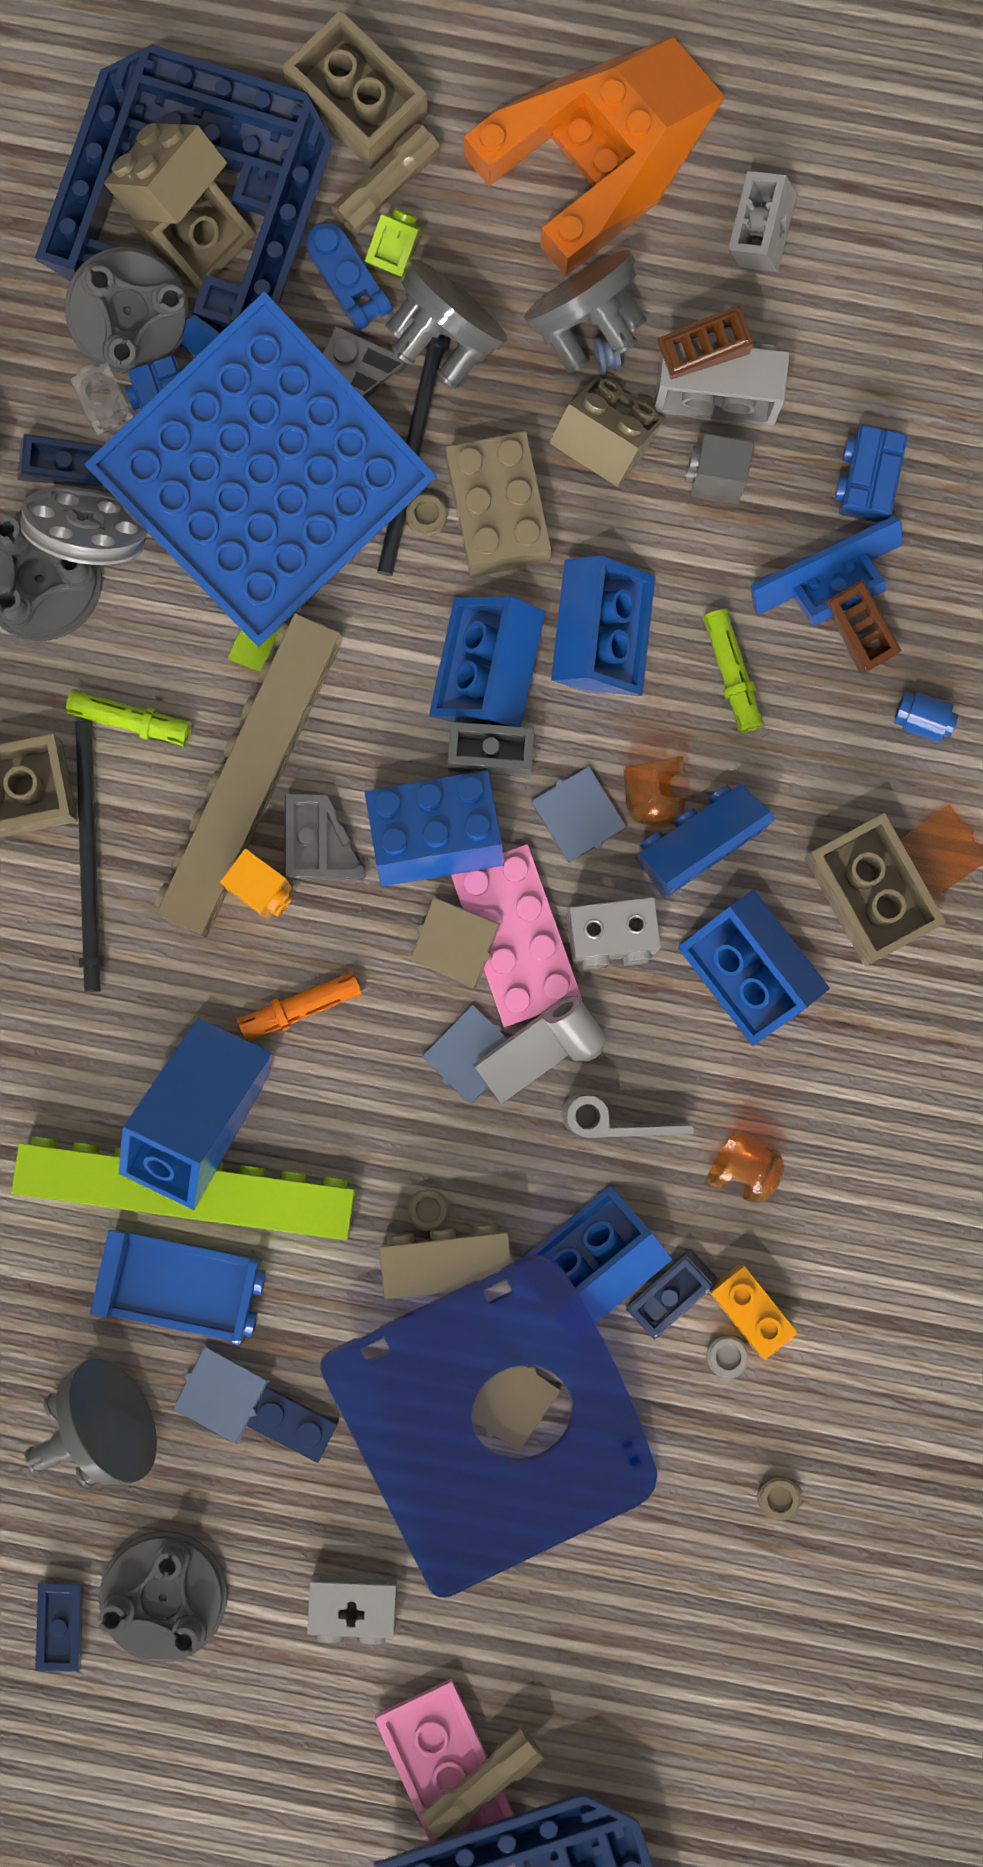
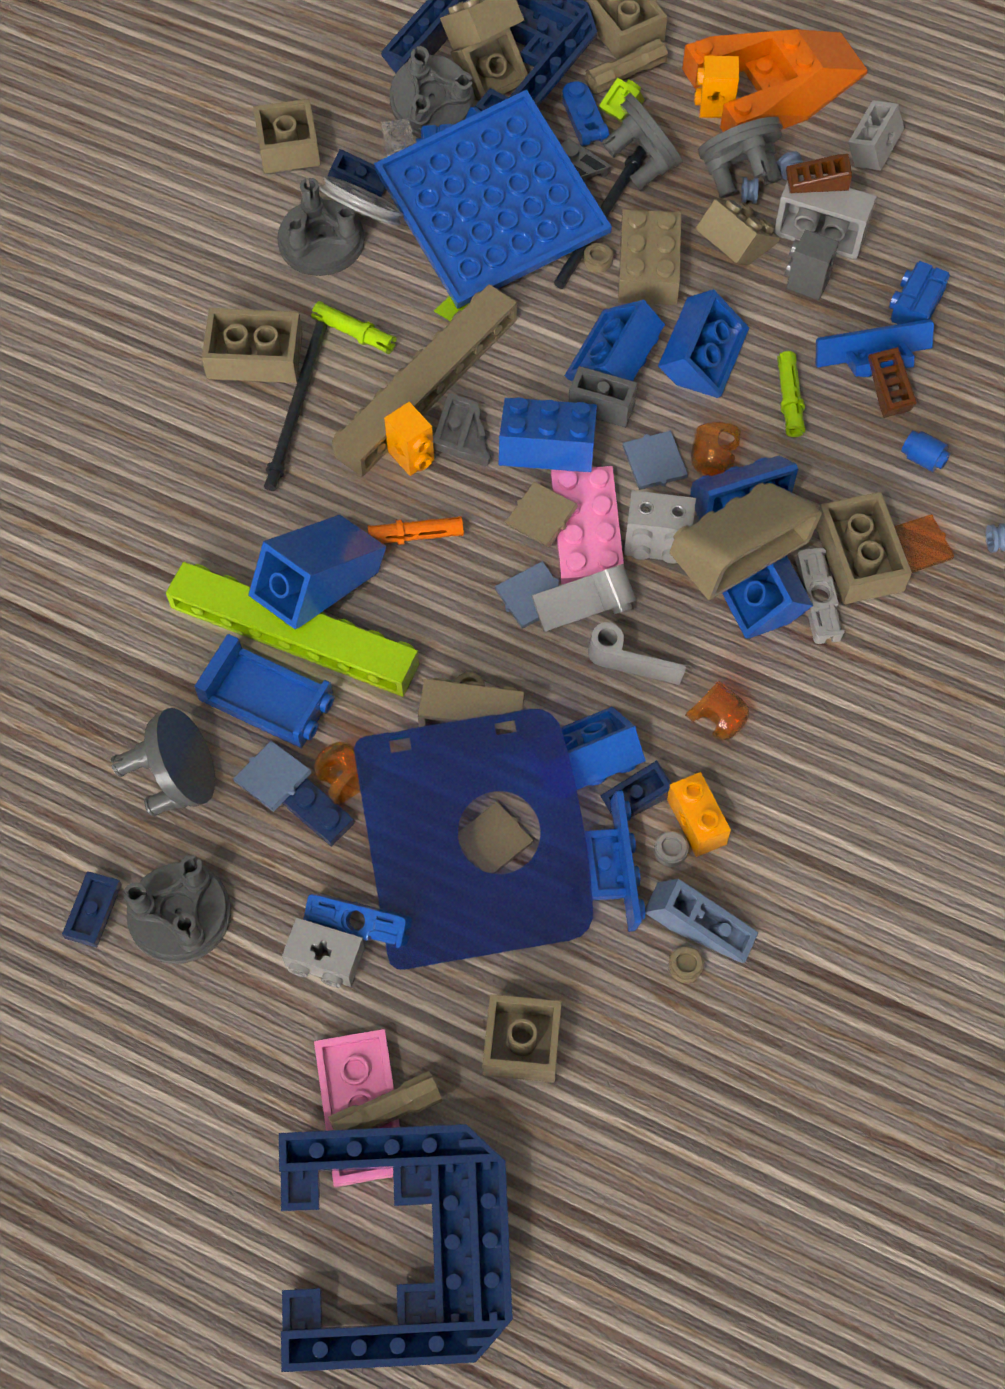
camera: 20 degrees right, 20 degrees down
(300, 1362) = (332, 760): none -> clear orange helmet
(410, 1558) = (379, 923): none -> blue piece
(525, 195) = (717, 85): none -> light orange brick
(615, 1654) = (521, 1038): none -> dark tan brick
(654, 297) = (788, 159): none -> sand blue bush
(662, 1401) = (612, 862): none -> blue bracket
(729, 944) = (744, 537): none -> dark tan windscreen
(784, 1445) = (700, 919): none -> sand blue slope
(819, 936) = (823, 615): none -> light grey piece

